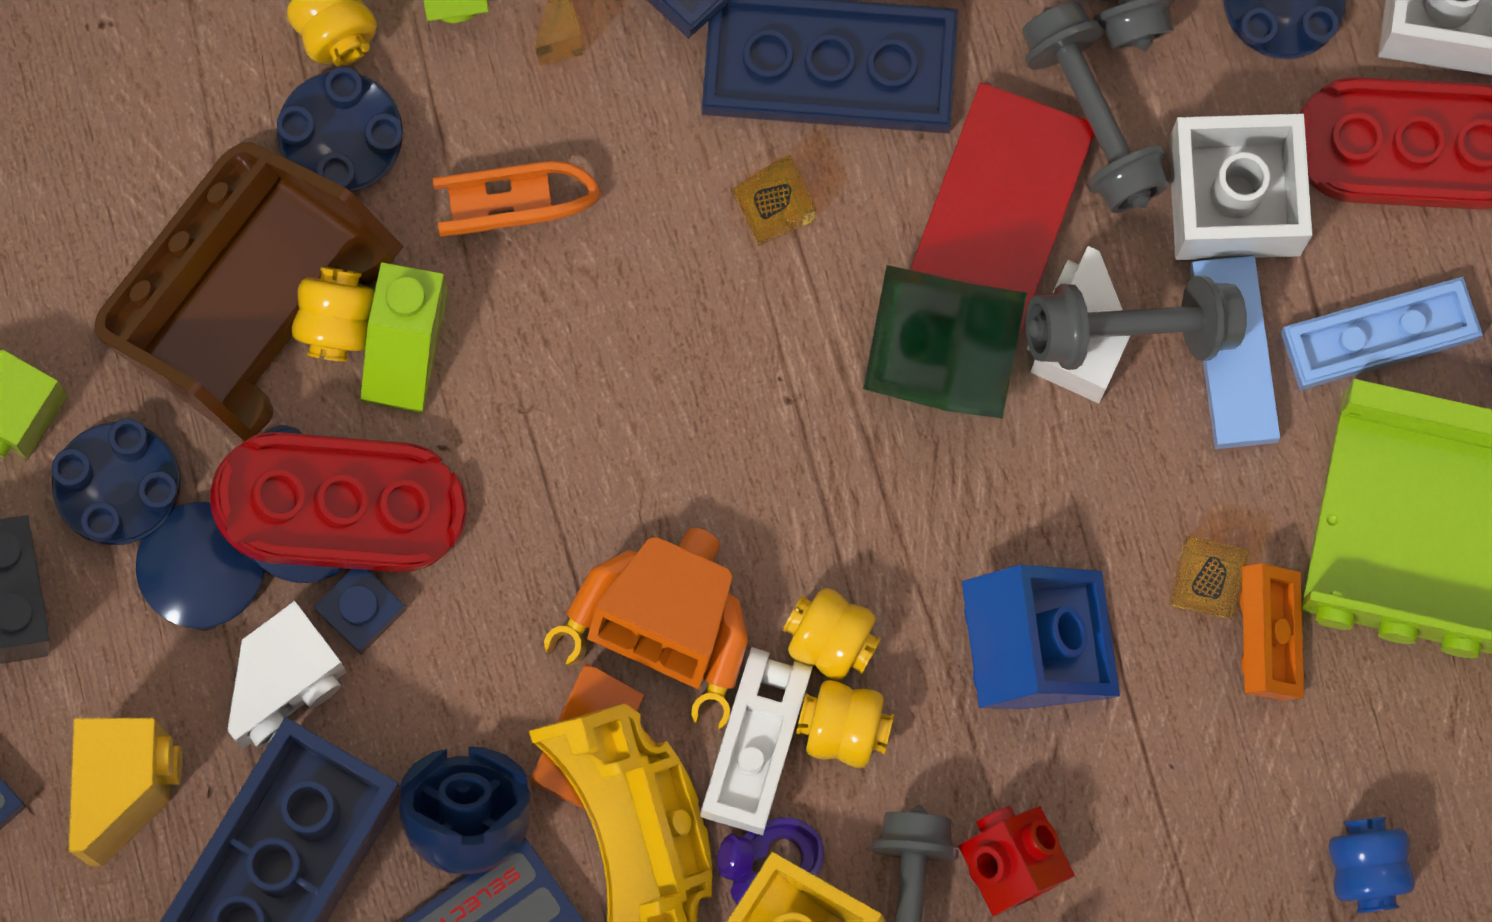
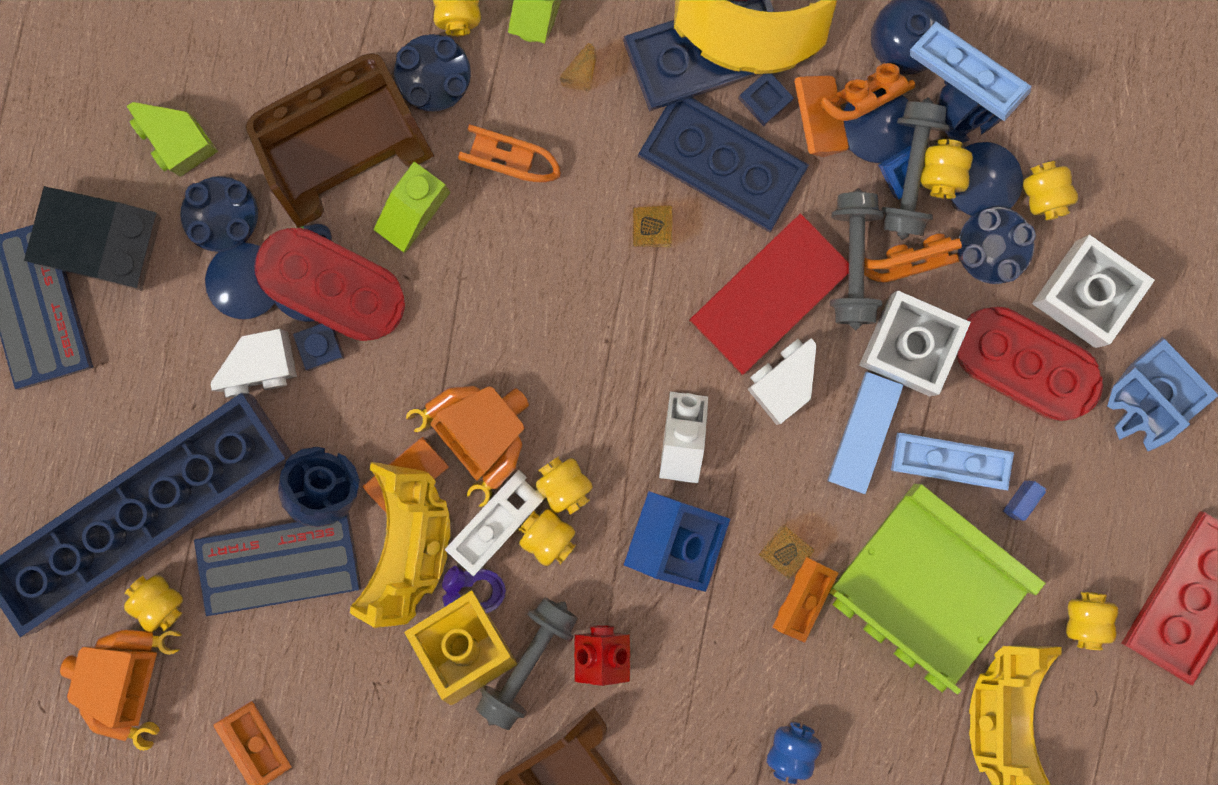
camera: 35 degrees right, 10 degrees up
(118, 782) = (136, 383): yellow slope -> none
(333, 314) = (377, 175): yellow piece -> none
(944, 342) = (705, 354): clear green slope -> none
(974, 481) = (684, 437): none -> white slope
(1156, 78) = (900, 259): none -> orange piece
(1209, 317) = (858, 411): dark grey piece -> none

